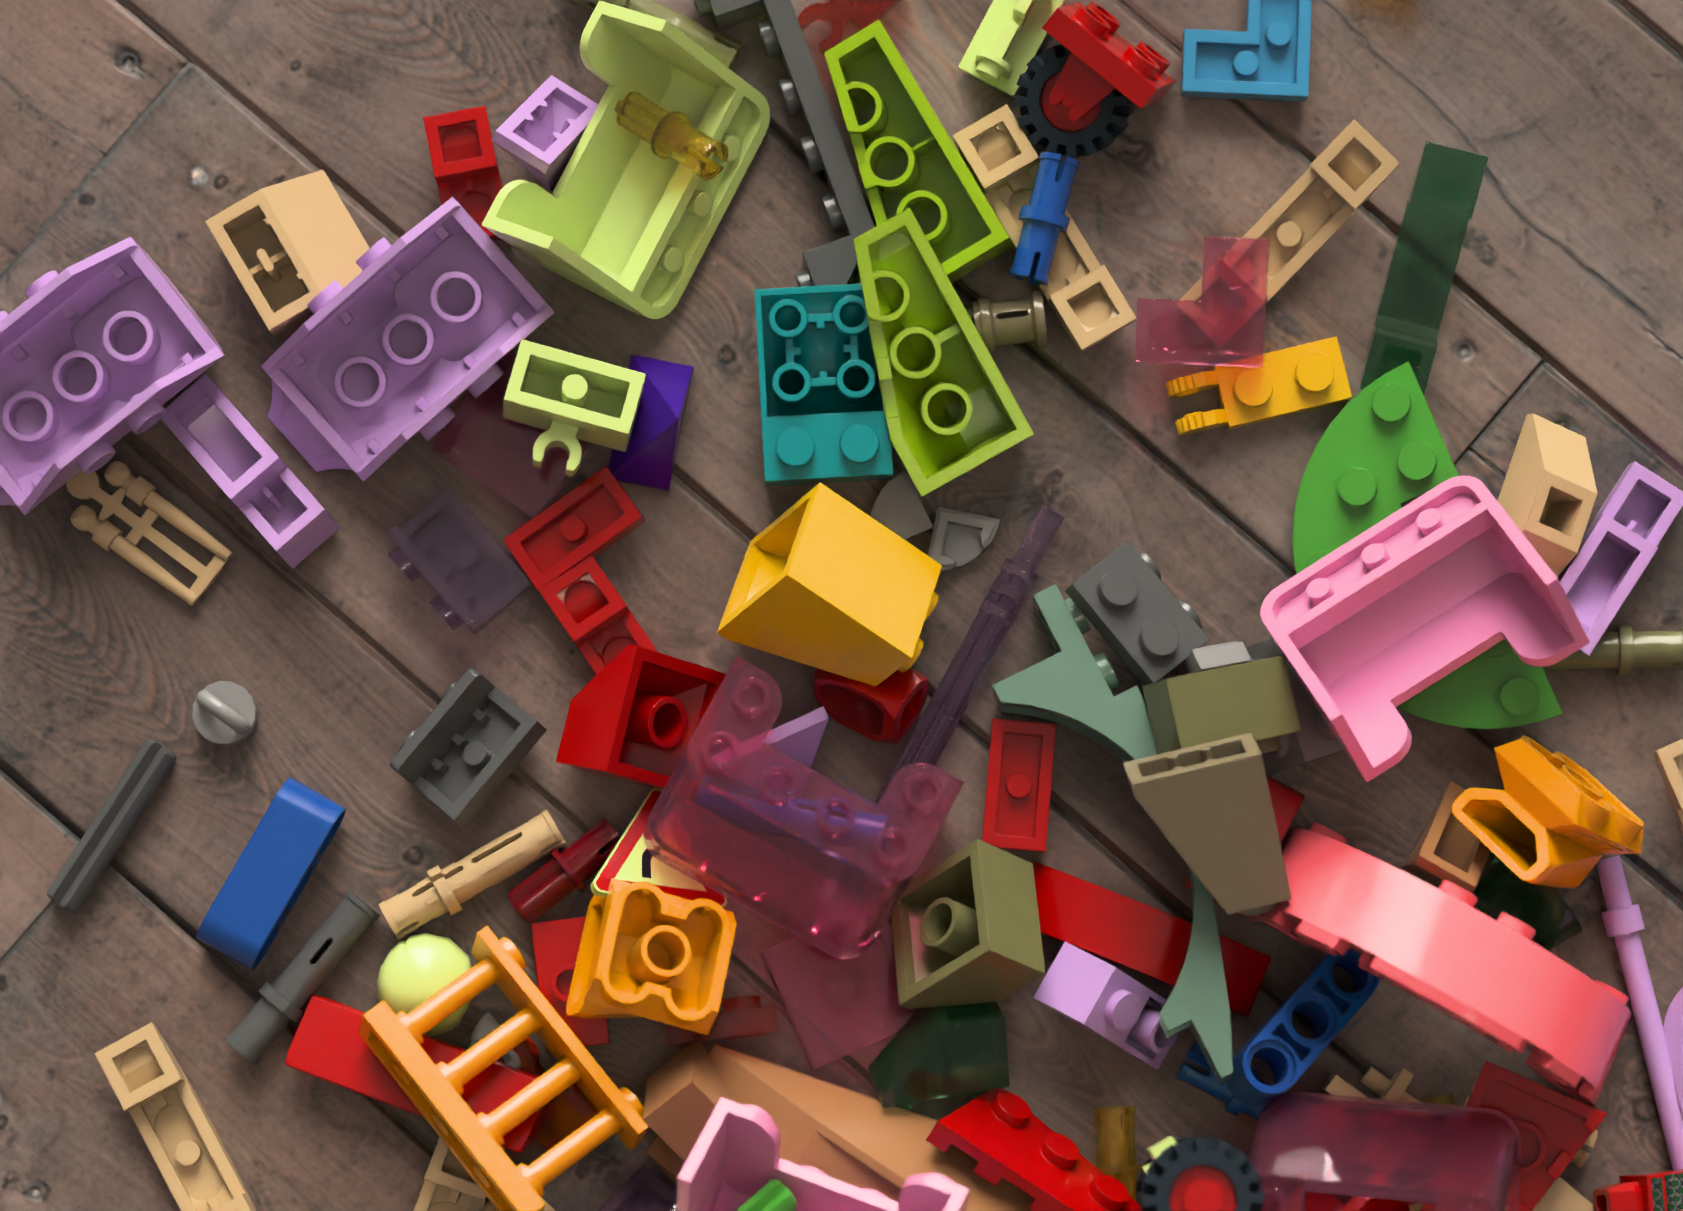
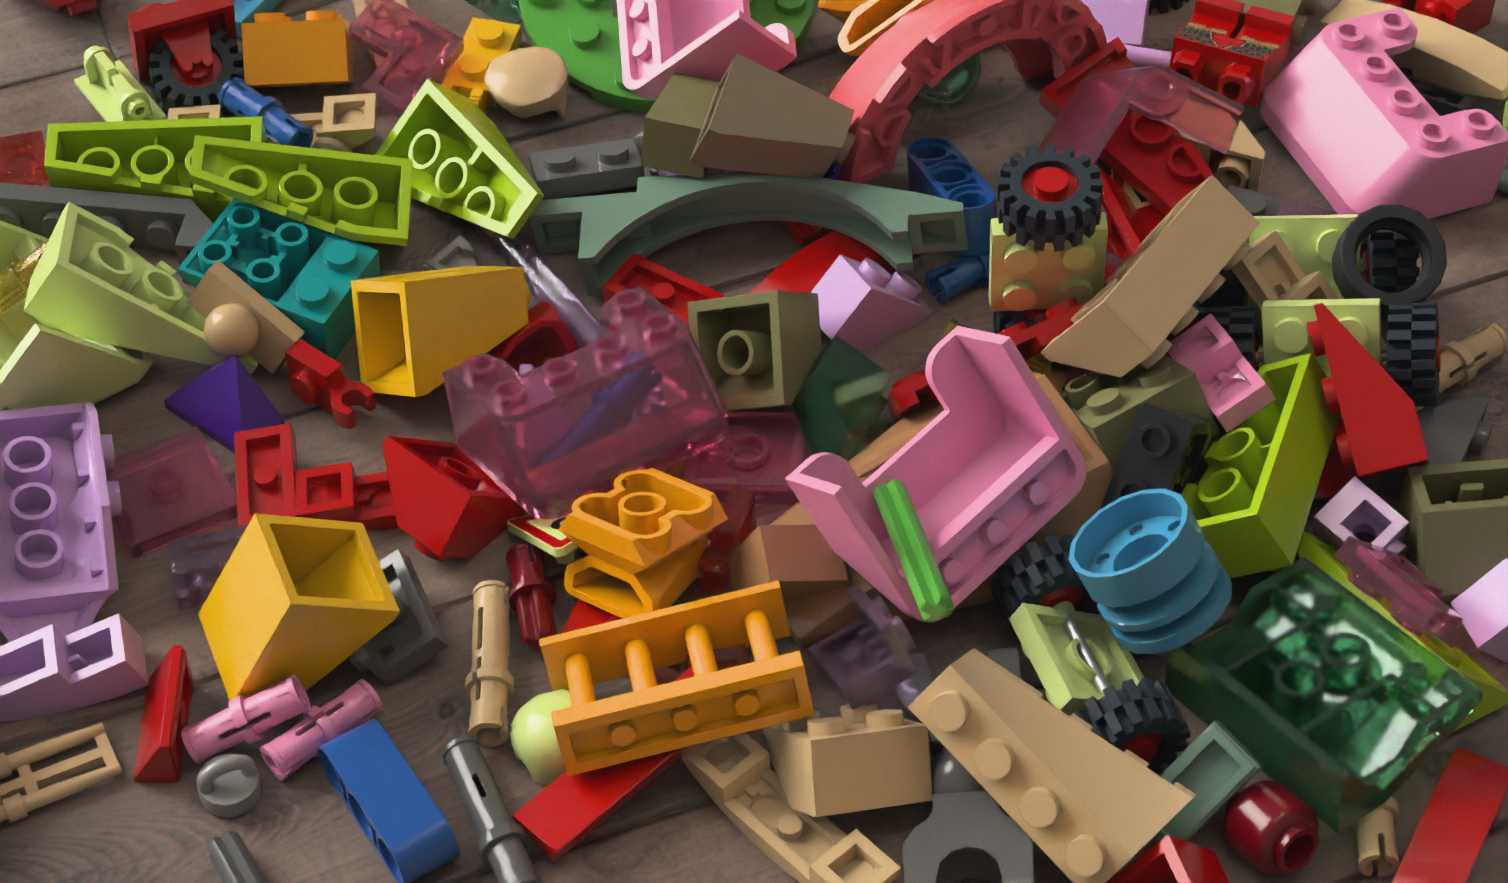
camera: 60 degrees left, 35 degrees down
(258, 610) = (163, 717): none -> red slope
(278, 747) = (319, 726): none -> bright pink pin
(285, 694) = (246, 719): none -> bright pink pin
(407, 679) = (294, 602): none -> yellow slope
(572, 401) = (166, 410): yellowish green brick -> none
(693, 249) = (112, 295): none -> yellowish green wedge
(719, 498) = (321, 381): none -> red plate
(730, 391) = (241, 319): none -> tan tile
(1091, 460) = (462, 161): none -> lime wedge
(1174, 183) = (297, 52): none -> light orange slope
(1250, 465) = (528, 82): none -> tan hair

